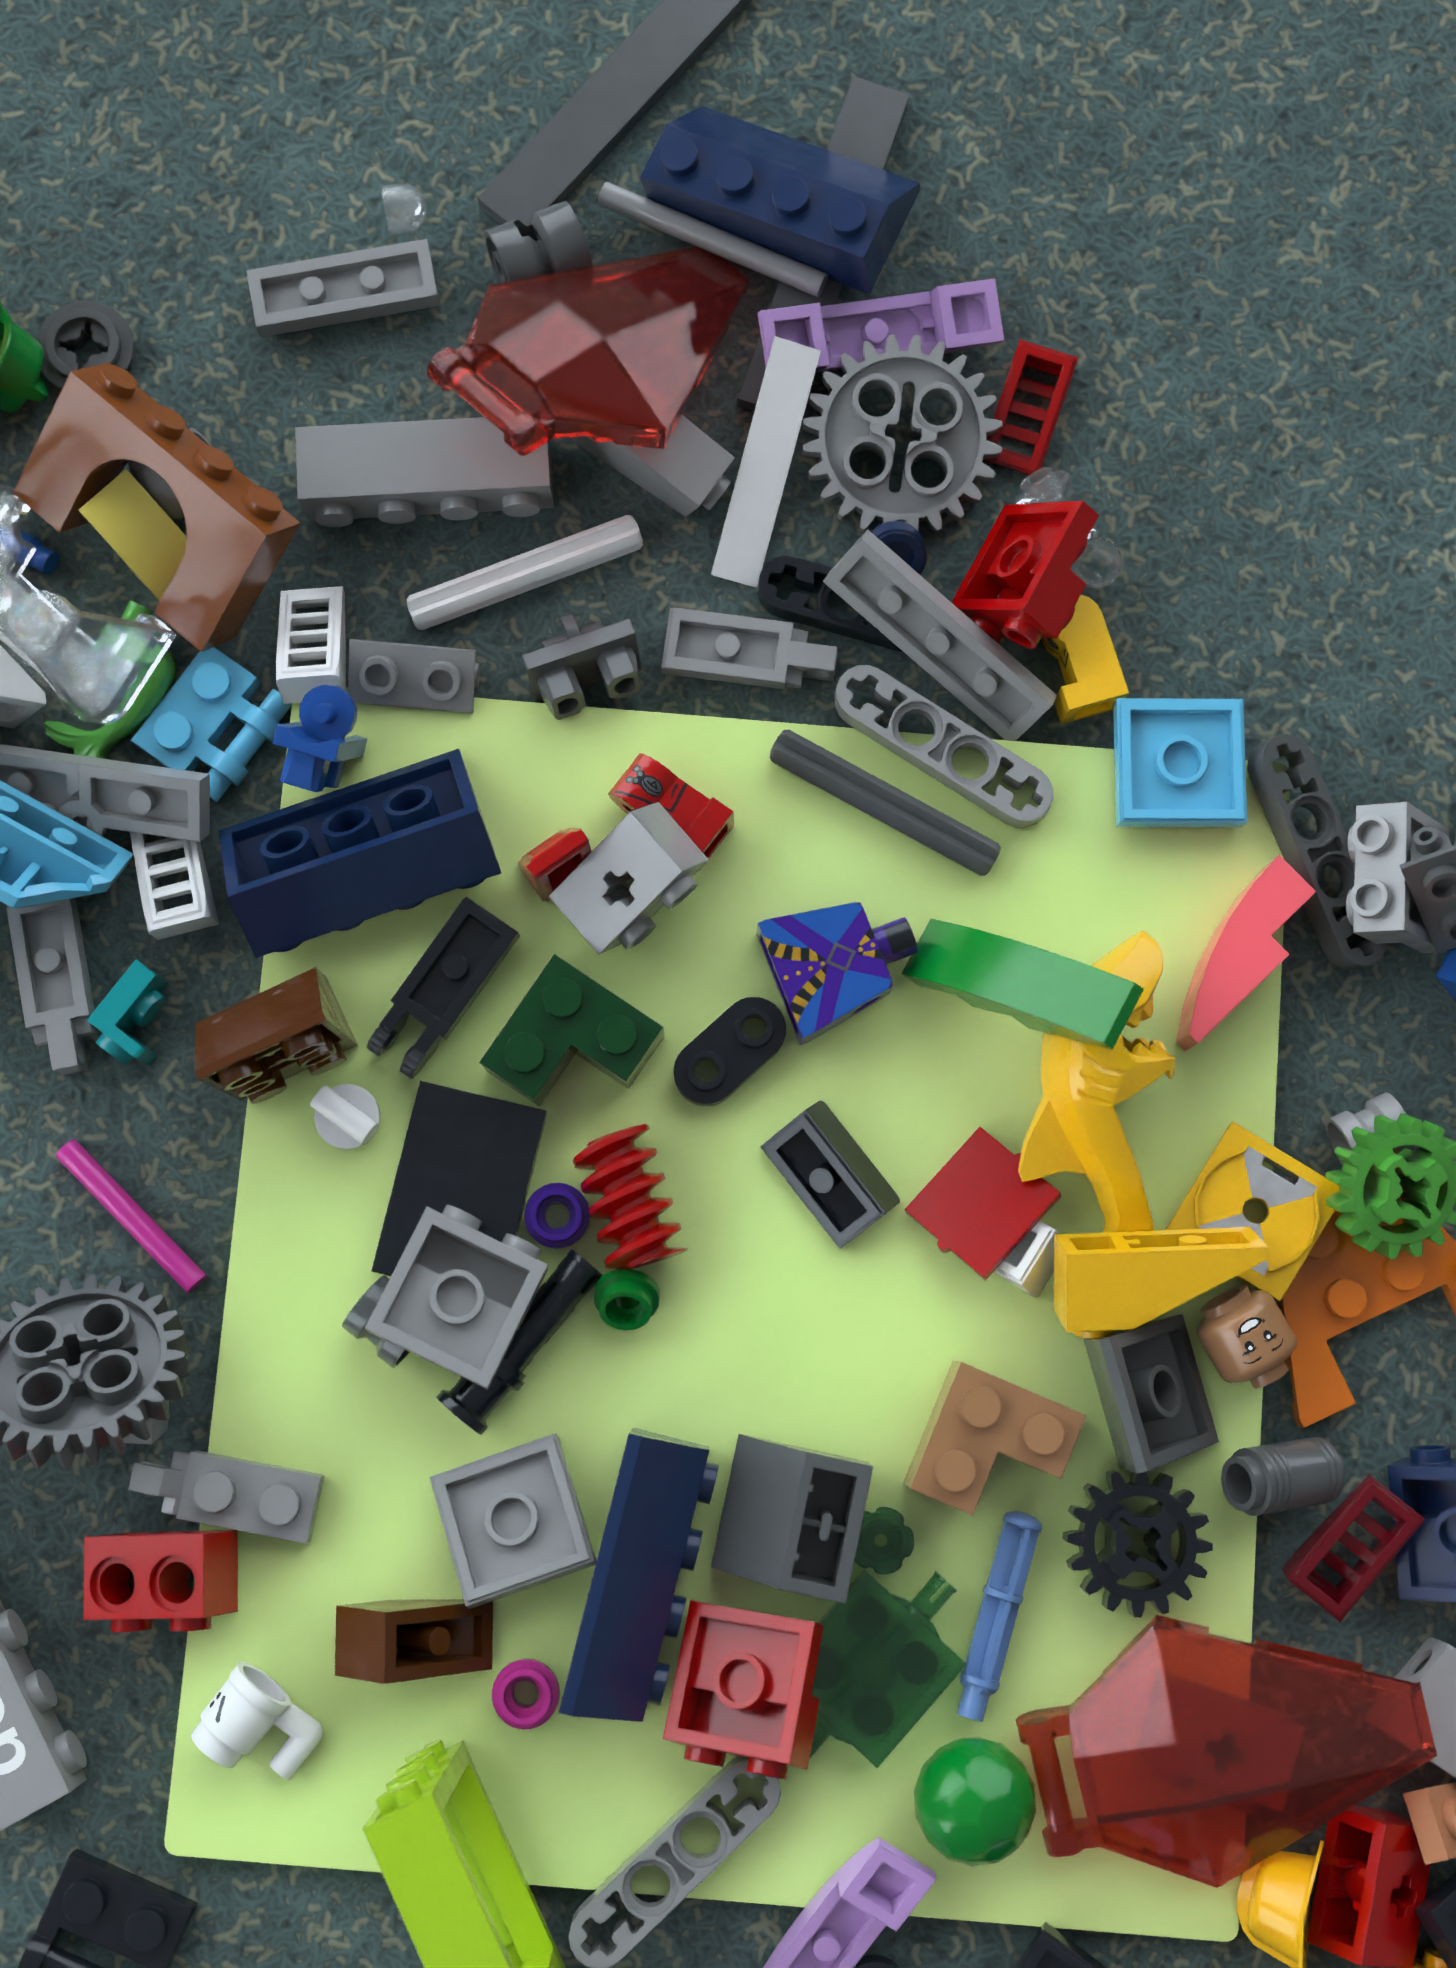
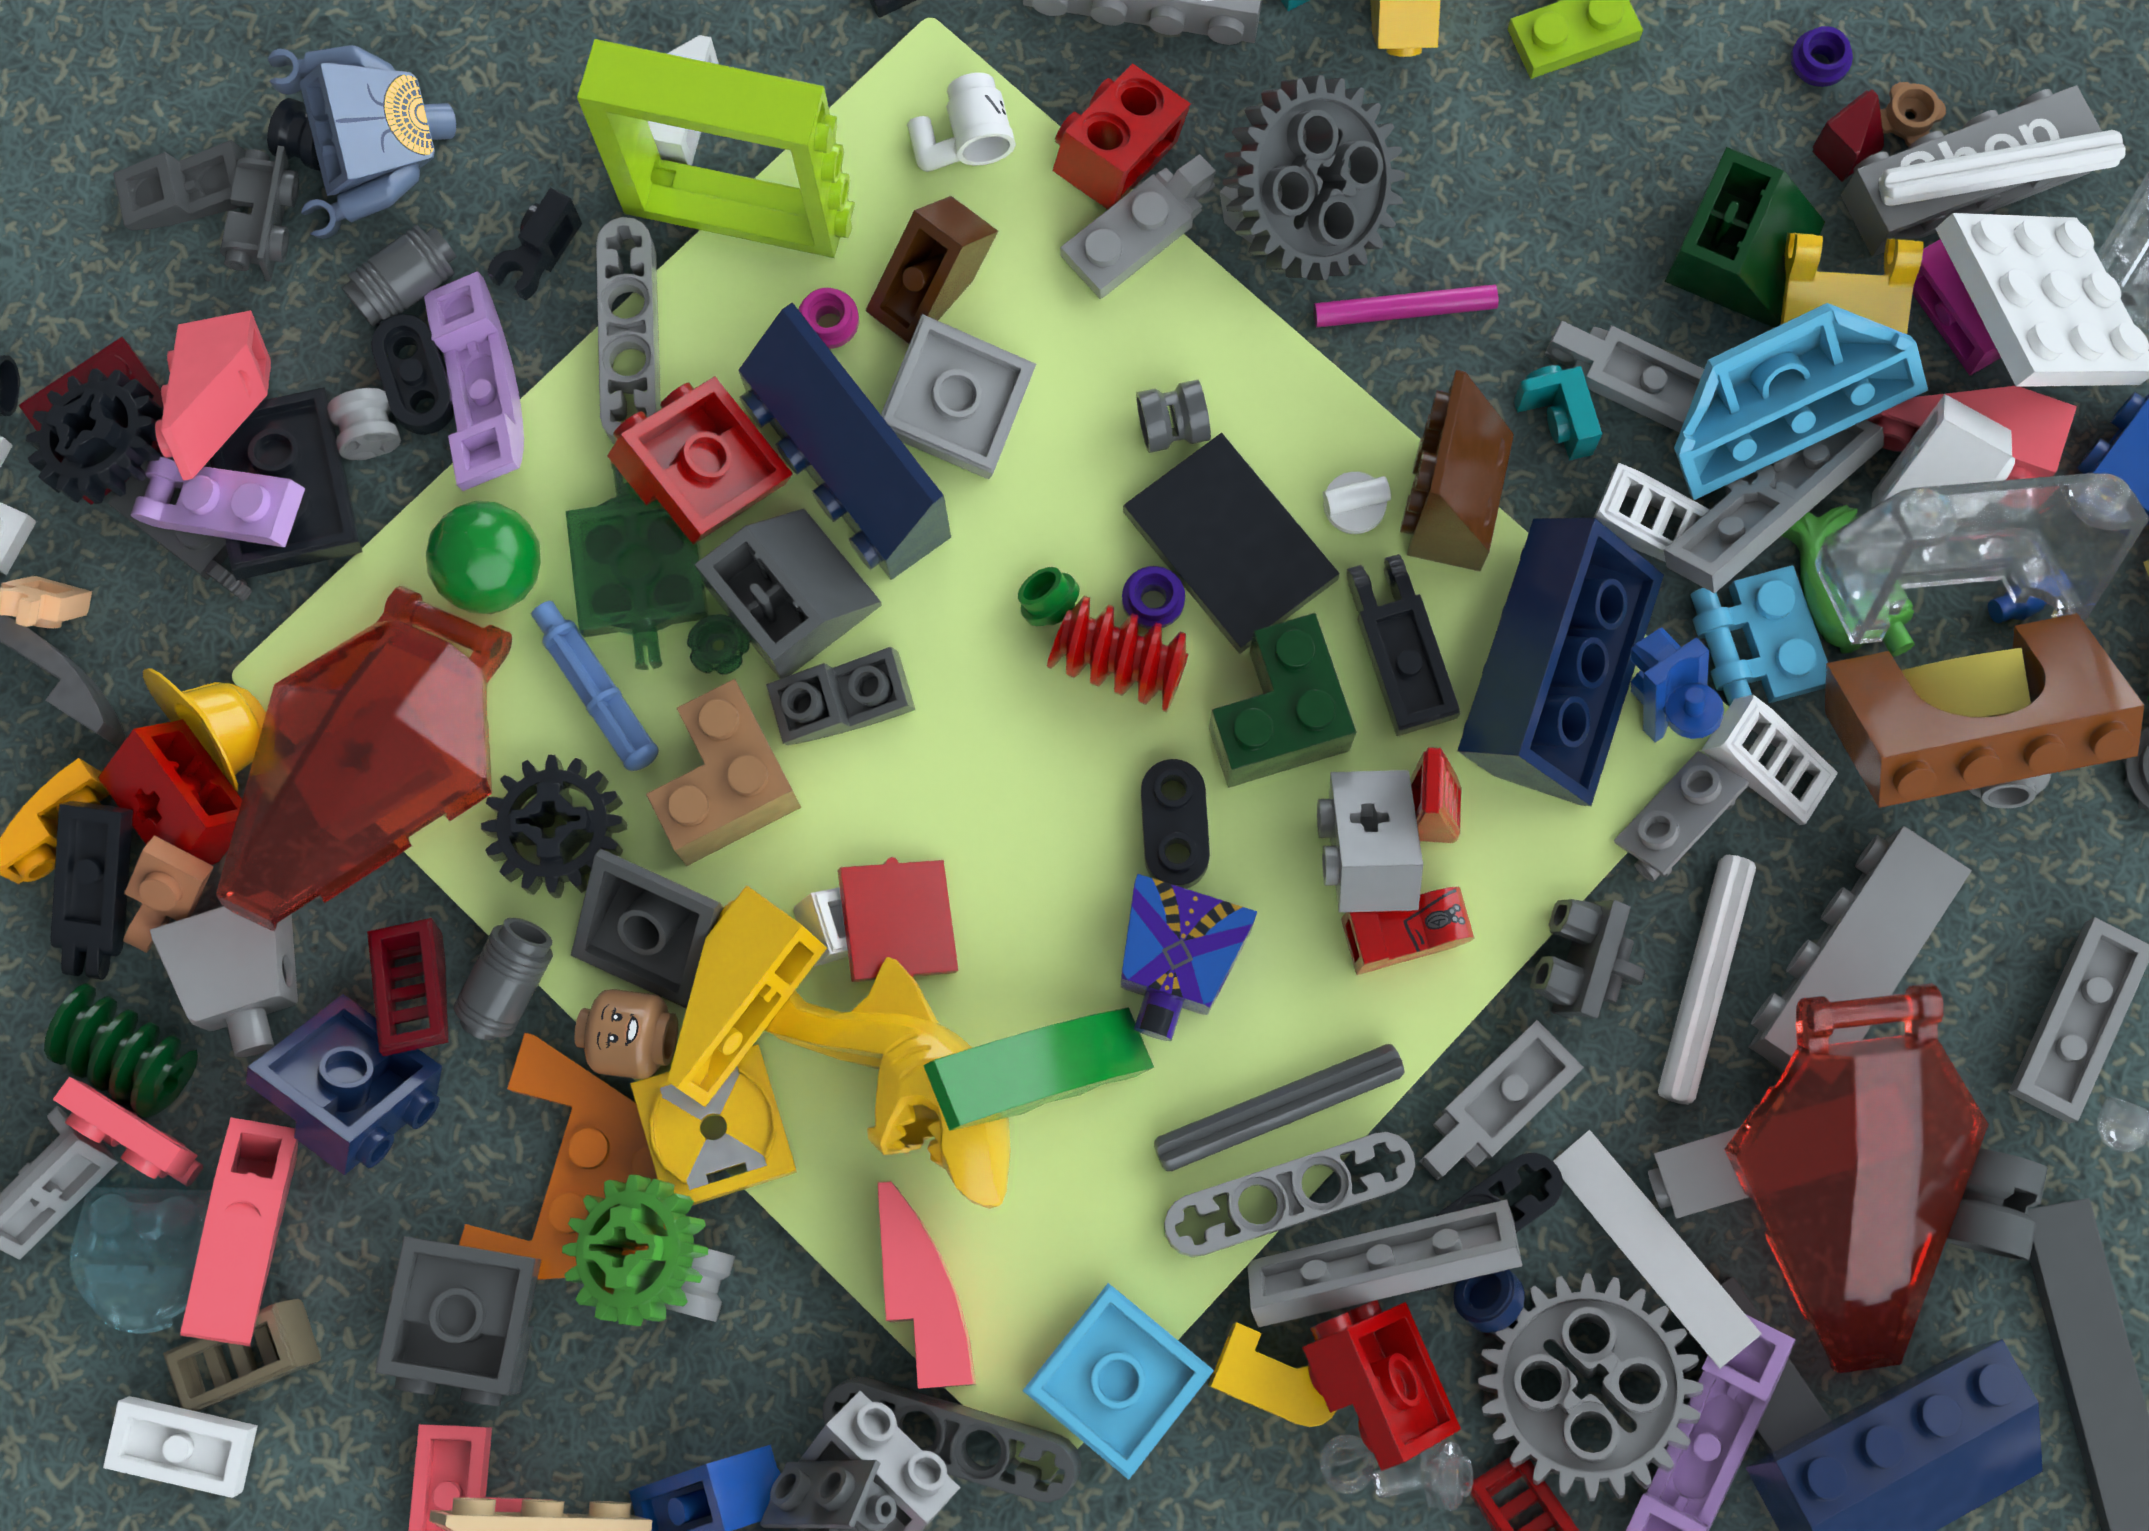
camera: 135 degrees right, 5 degrees down
(458, 1294) = (1149, 468): light grey plate -> none
(546, 1314) = (1075, 475): black pin -> none
(712, 239) = (1899, 1370): light grey bar -> none
(830, 1173) = (1016, 828): slope -> none
(842, 1401) = (840, 698): none -> dark grey slope

